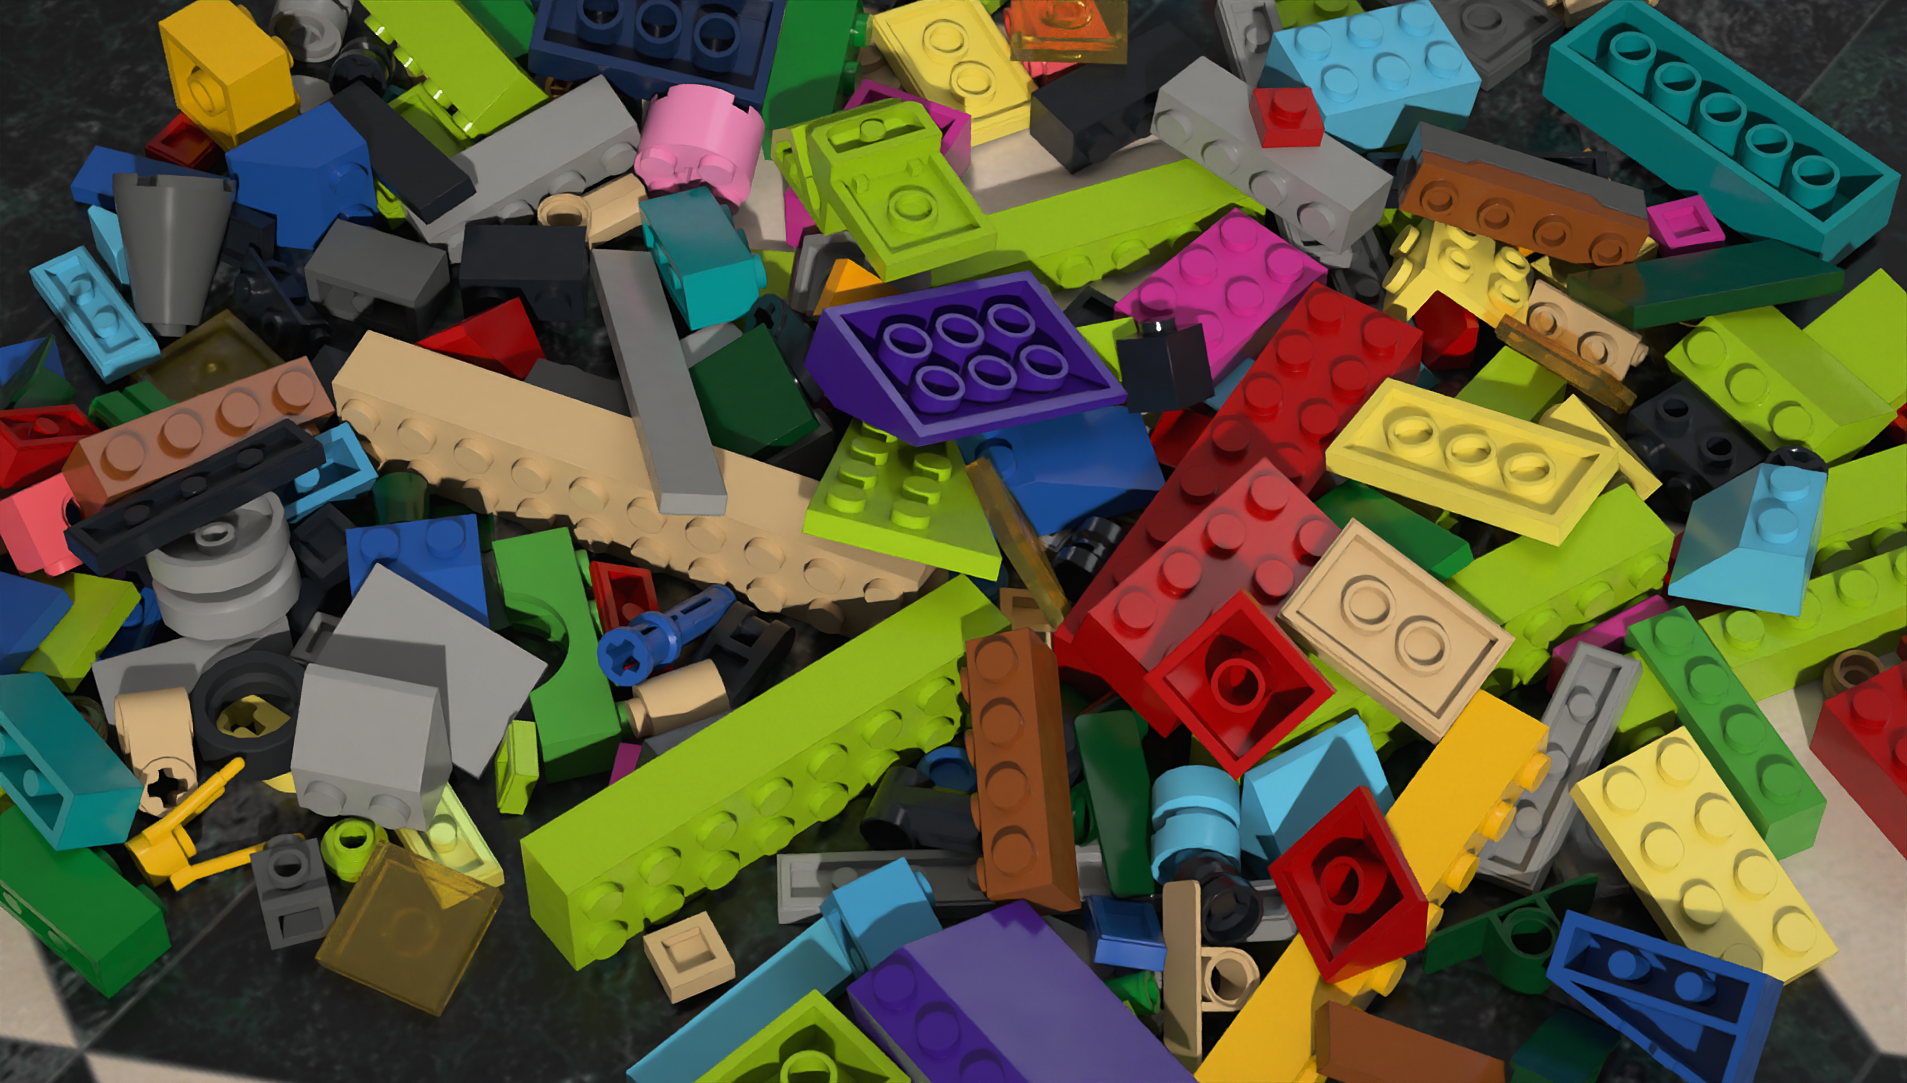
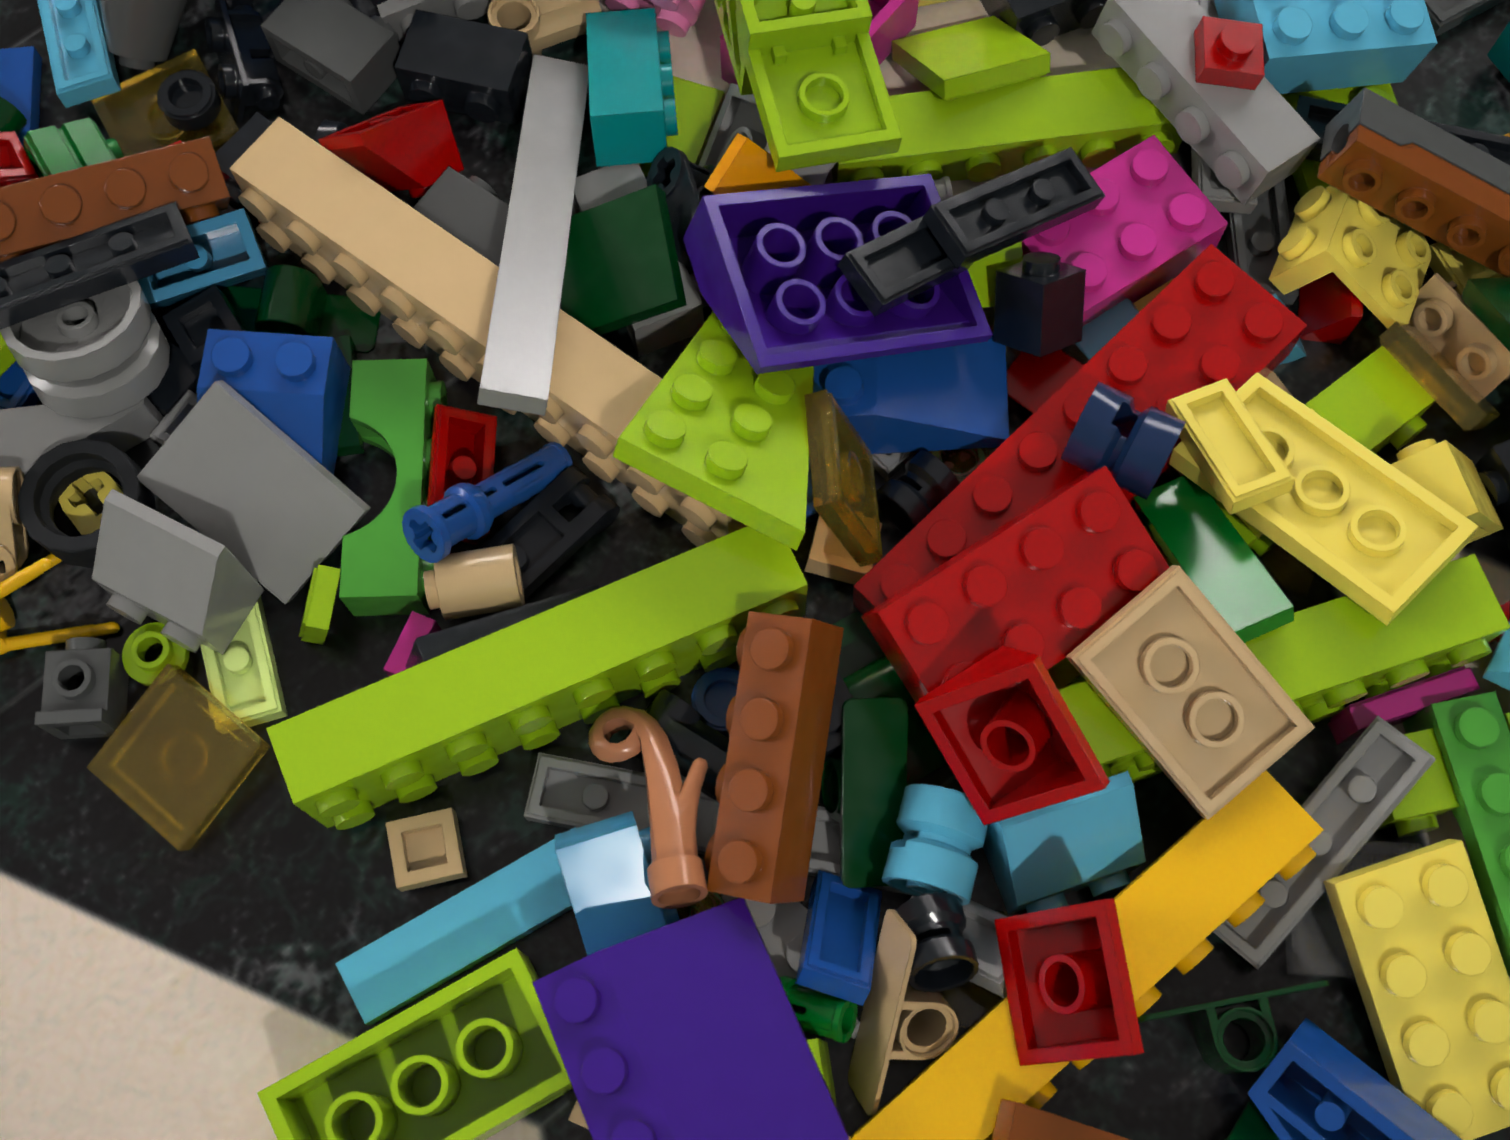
camera: 15 degrees right, 20 degrees up
(240, 351) = (189, 100): none -> black tile
(951, 881) = (676, 871): none -> nougat plant
(1030, 339) = (897, 266): none -> black tile
(1039, 176) = (971, 57): none -> lime tile
(1118, 280) = (1013, 207): none -> black tile
(1289, 441) = (1123, 439): none -> dark blue wheel
(1375, 434) = (1230, 447): none -> light yellow tile

